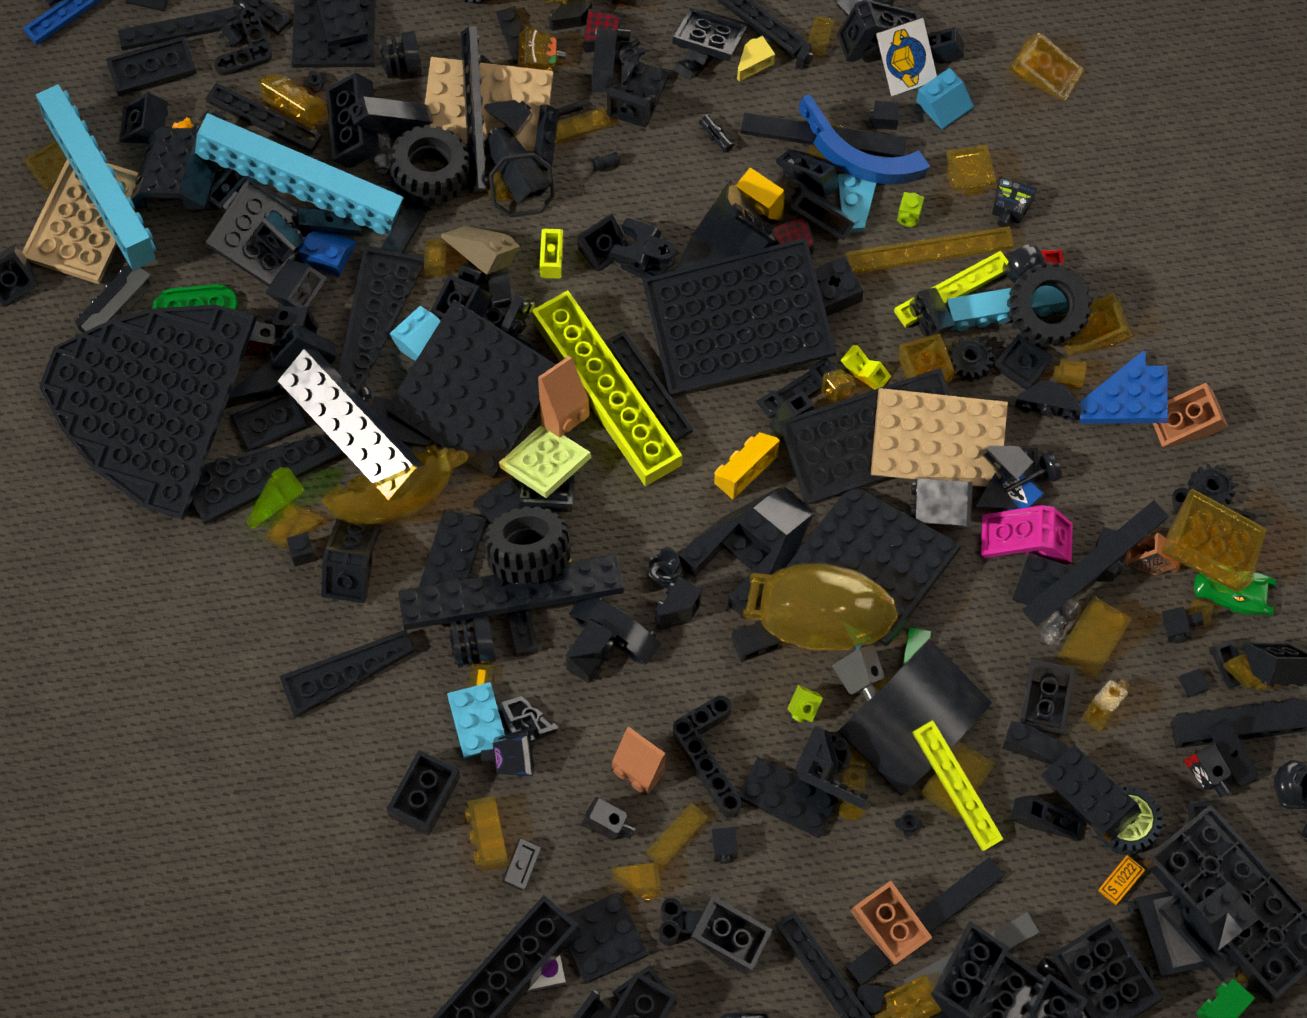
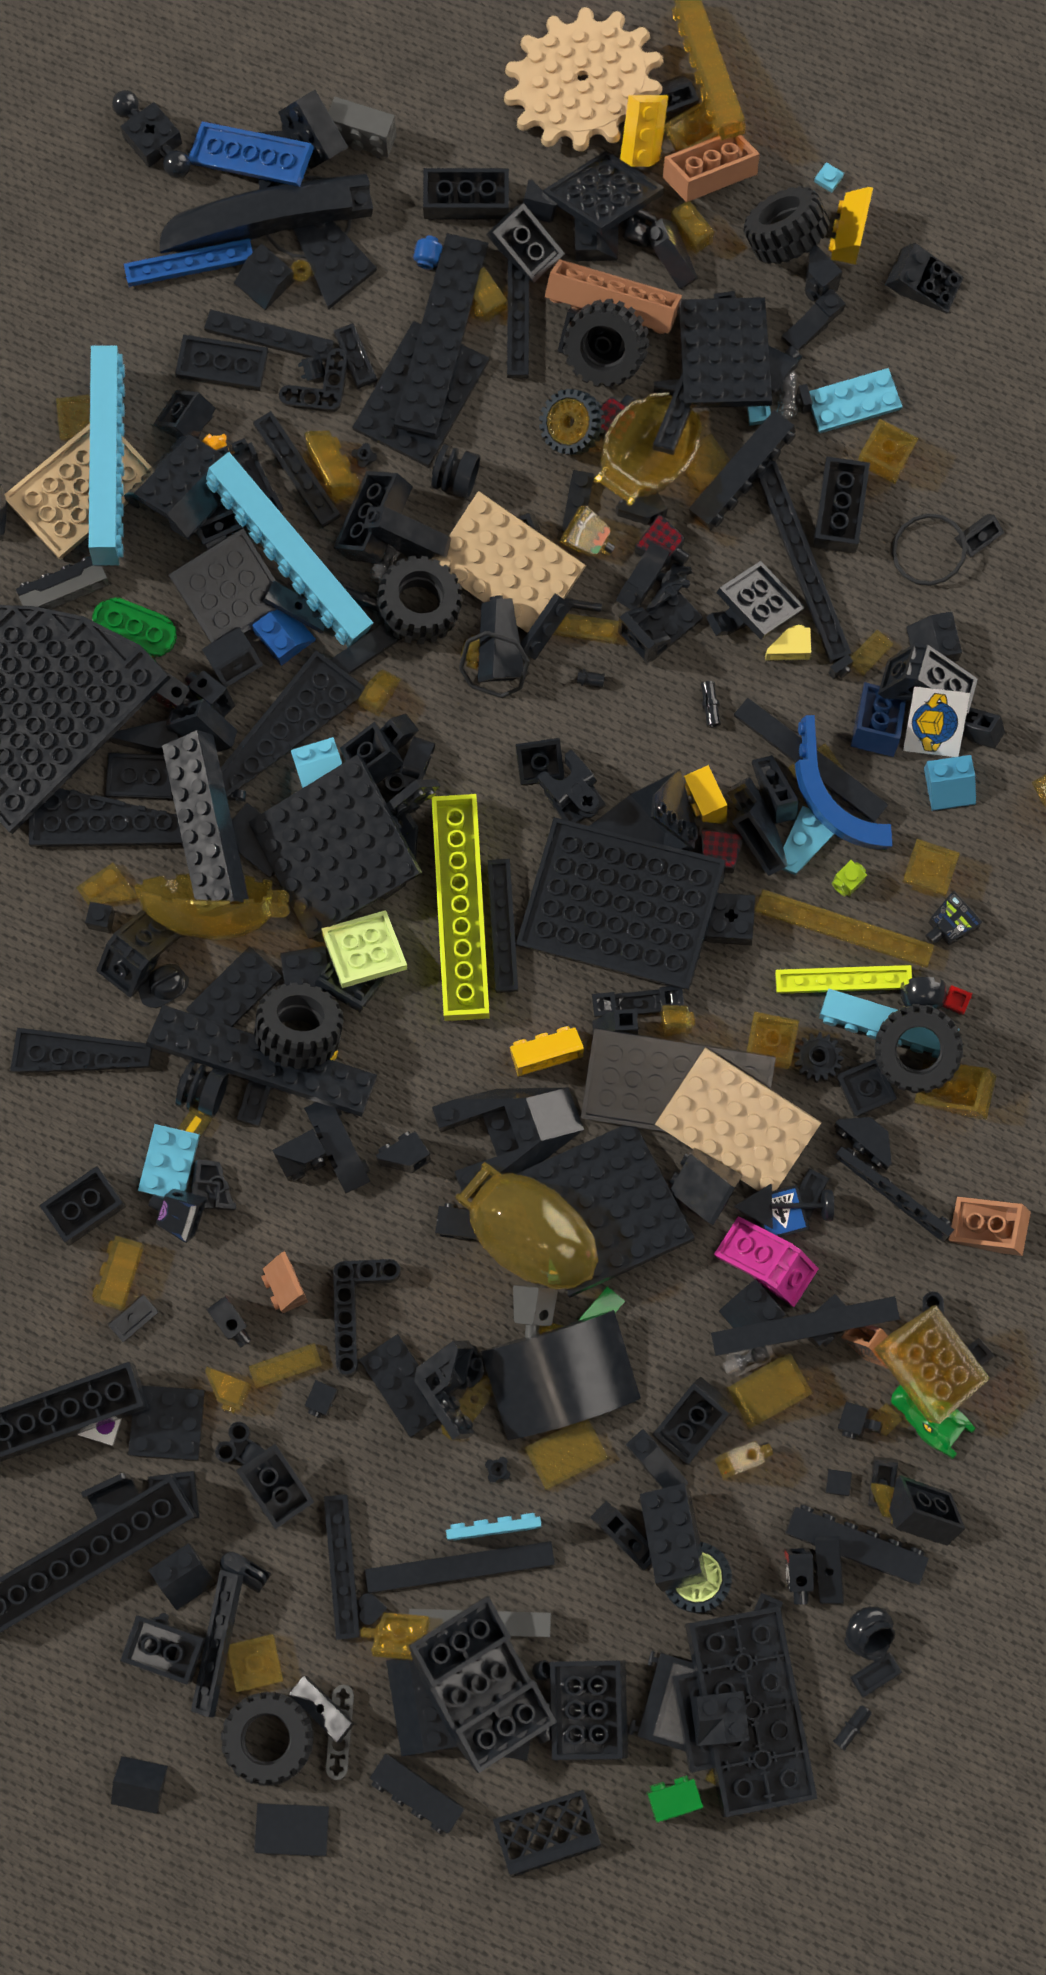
camera: 30 degrees right, 10 degrees up
(276, 494) = (109, 852): clear neon green slope -> none
(279, 235) = (241, 601): black slope -> none
(387, 579) = (163, 986): none -> black piece
(473, 111) = (491, 559): black plate -> none
(482, 247) = (423, 707): dark tan slope -> none
(511, 114) = (522, 589): black slope -> none
(551, 253) = (484, 747): neon yellow brick -> none
(562, 398) = (409, 900): nougat slope -> none
(665, 567) = (415, 1112): black hair -> none
(804, 704) = (466, 1309): lime brick -> none
(859, 82) = (878, 722): none -> dark blue slope
(867, 371) = (714, 1015): neon yellow slope -> none
(885, 115) = (882, 769): black brick -> none
(891, 923) = (424, 1554): nougat slope -> none
(931, 312) = (804, 996): black slope -> none
(932, 872) = (504, 1525): none -> medium azure plate
(957, 785) = (557, 1461): neon yellow plate -> none
(1007, 460) = (788, 1180): slope -> none
(1070, 373) = (903, 1123): clear yellow brick -> none
(1121, 880) = (658, 1628): light orange tile -> none
(1129, 396) = (947, 1175): blue wing -> none
(1136, 436) = (938, 1227): none -> black wing
(1216, 478) = (960, 1314): black gear -> none

